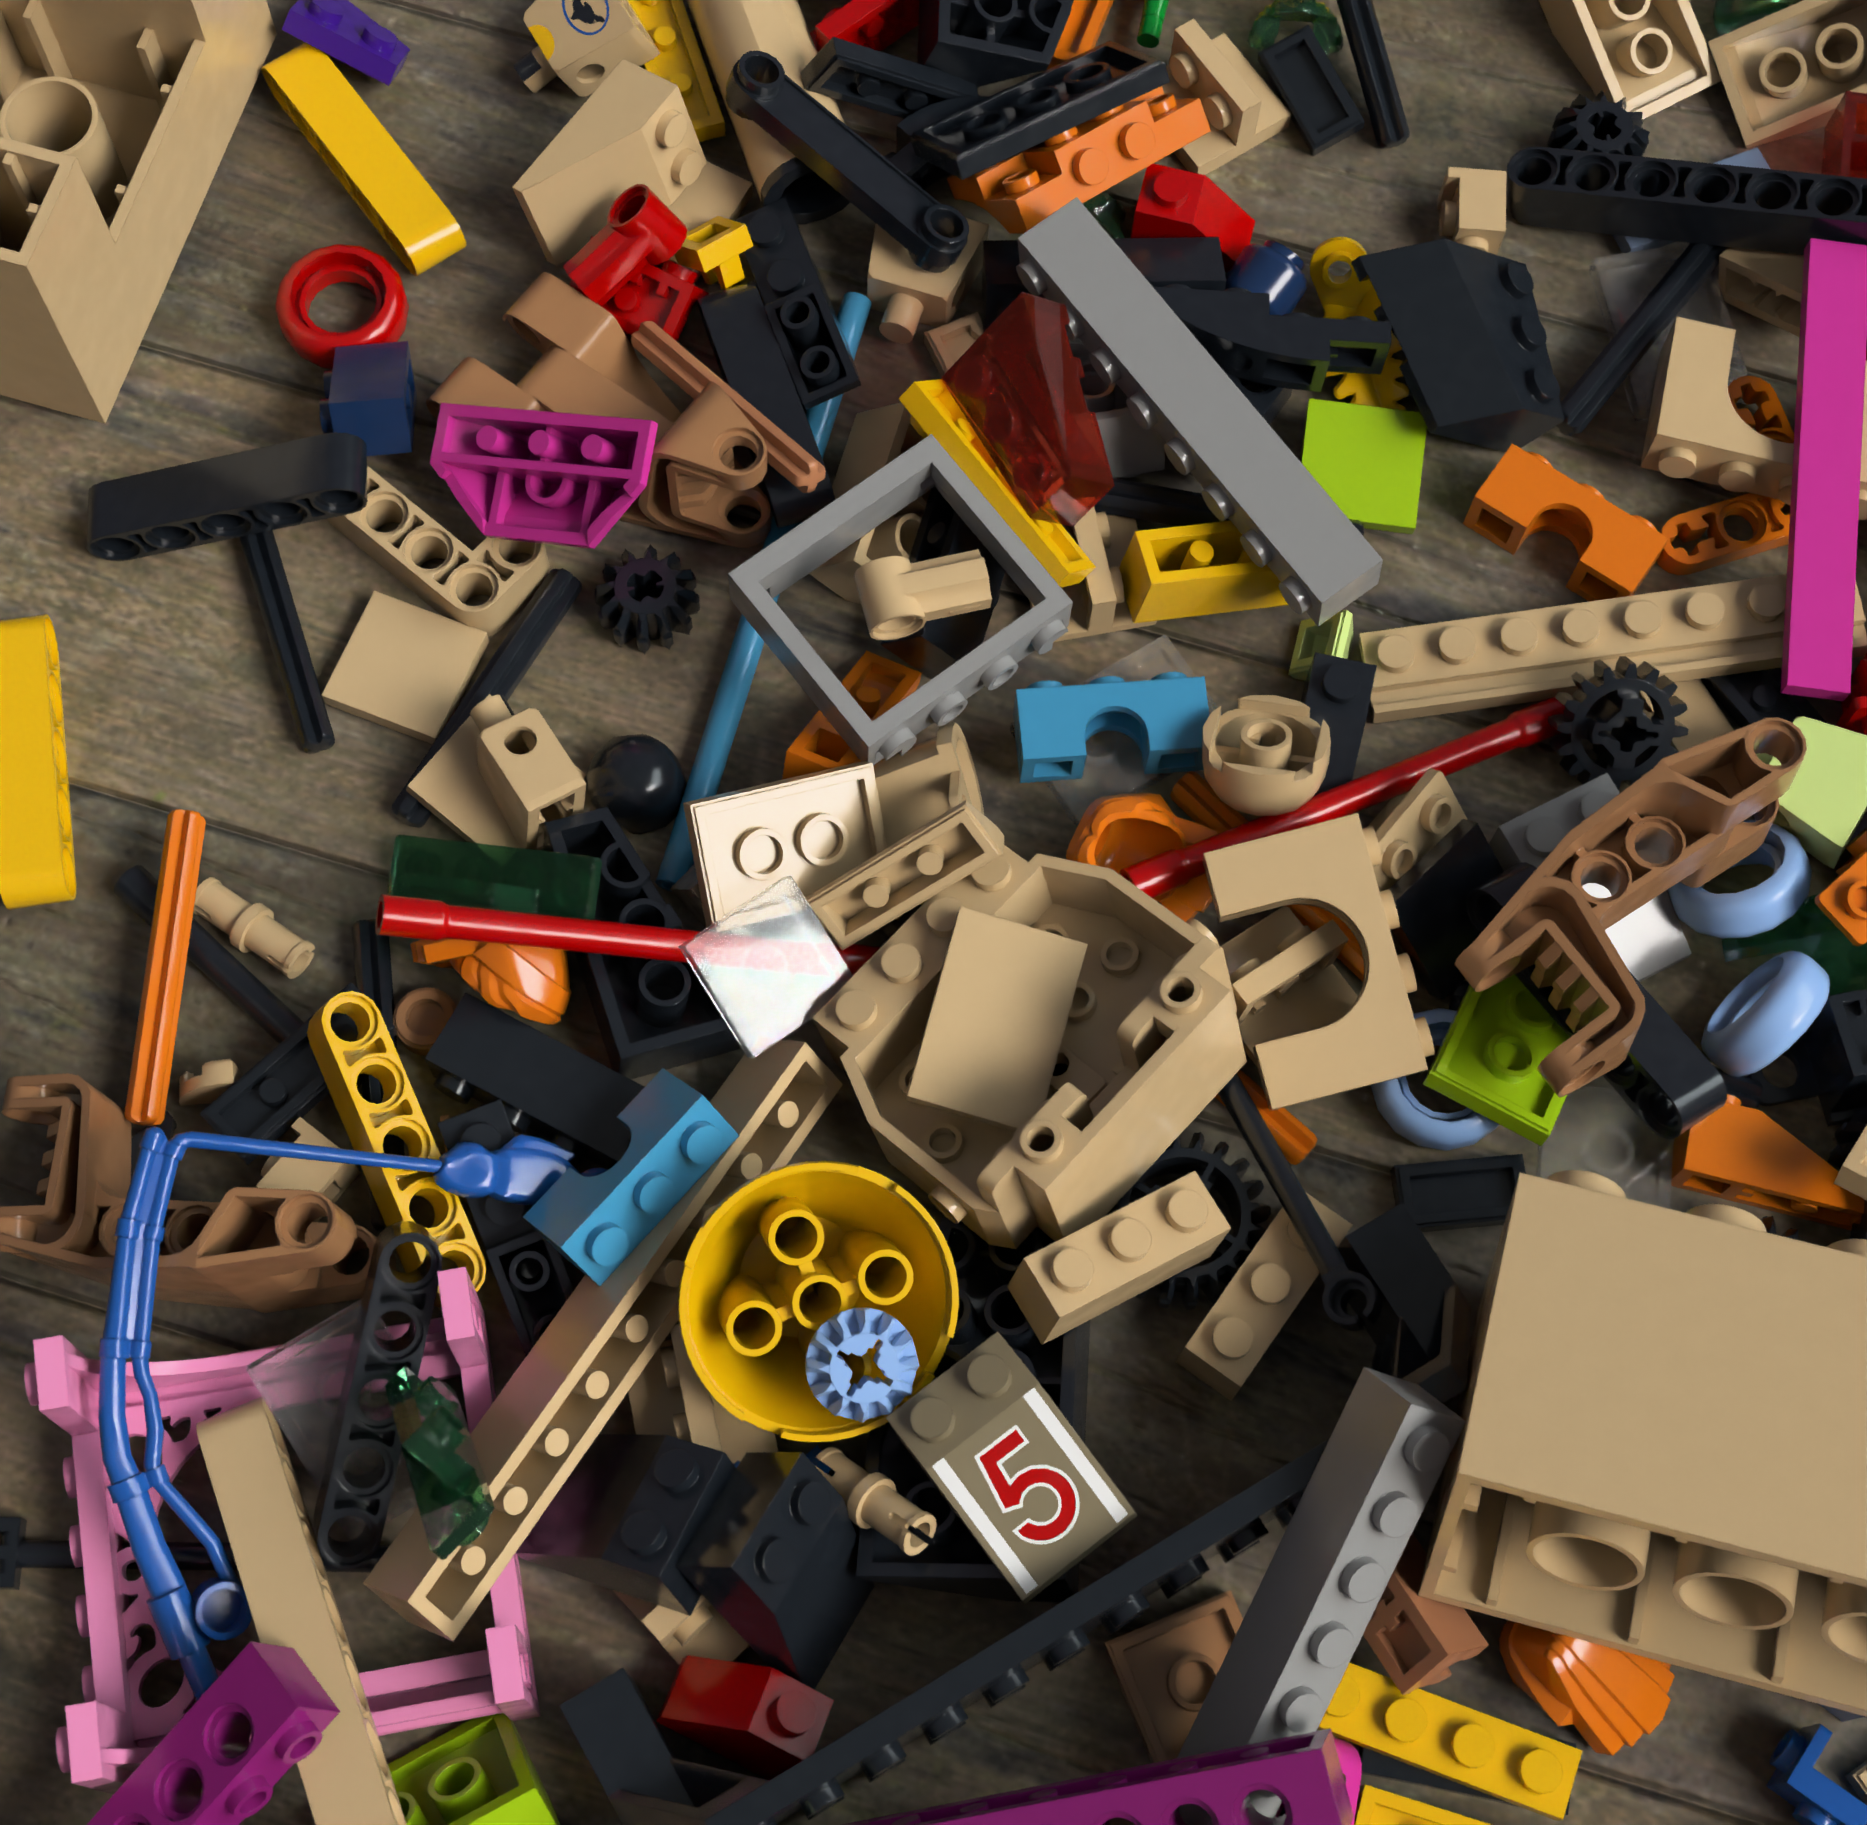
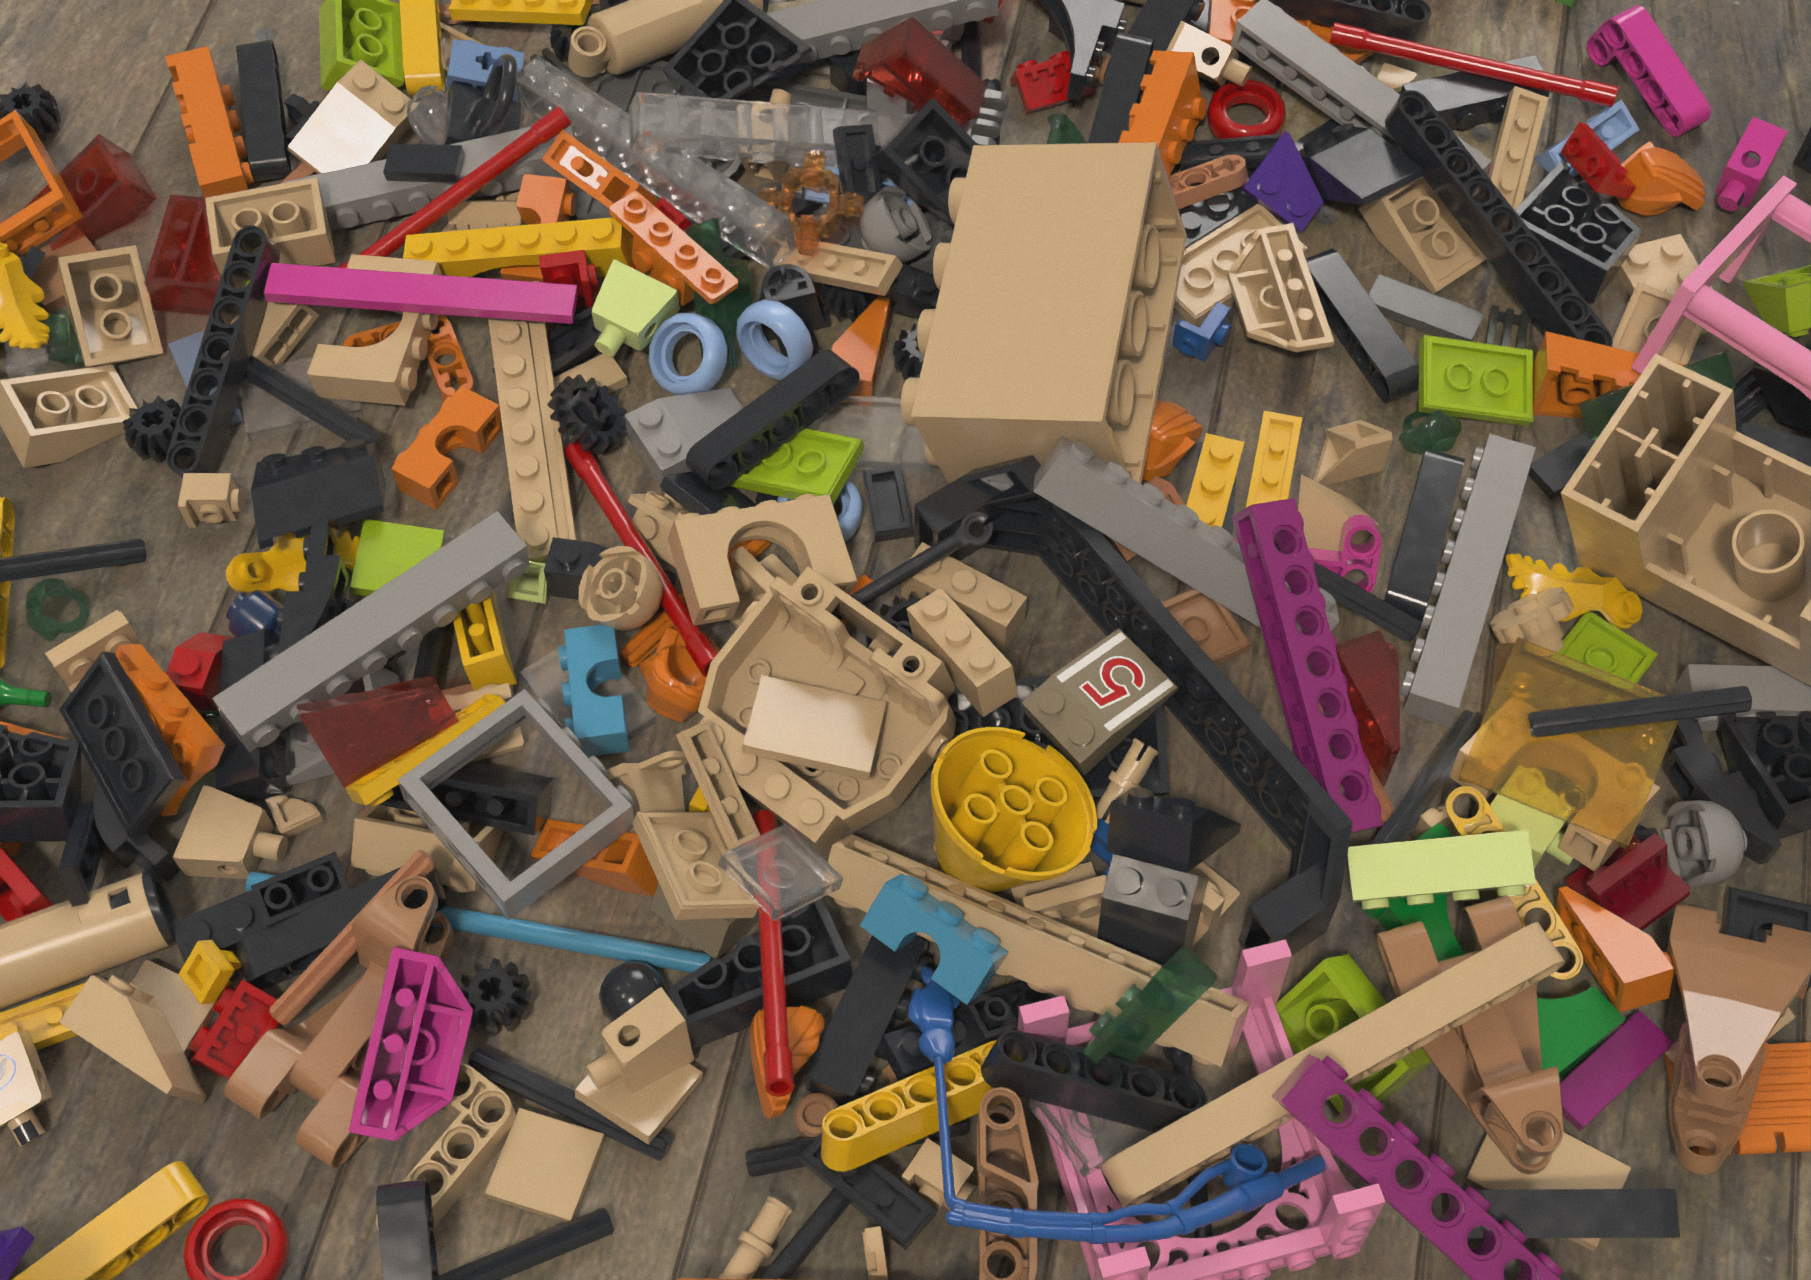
camera: 90 degrees left, 10 degrees down
(372, 396) = (328, 1203): dark blue brick -> none
(495, 877) = (724, 1066): clear green bracket -> none
(636, 234) = (213, 1025): red piece -> none
(746, 1713) = (1255, 854): red slope -> none
(854, 1333) = (1034, 772): light blue gear -> none
(905, 595) = (525, 776): tan piece -> none
(926, 228) = (96, 921): black piece -> none
(1311, 90) = (99, 596): black tile -> none
(1660, 831) = (748, 413): medium nougat piece -> none

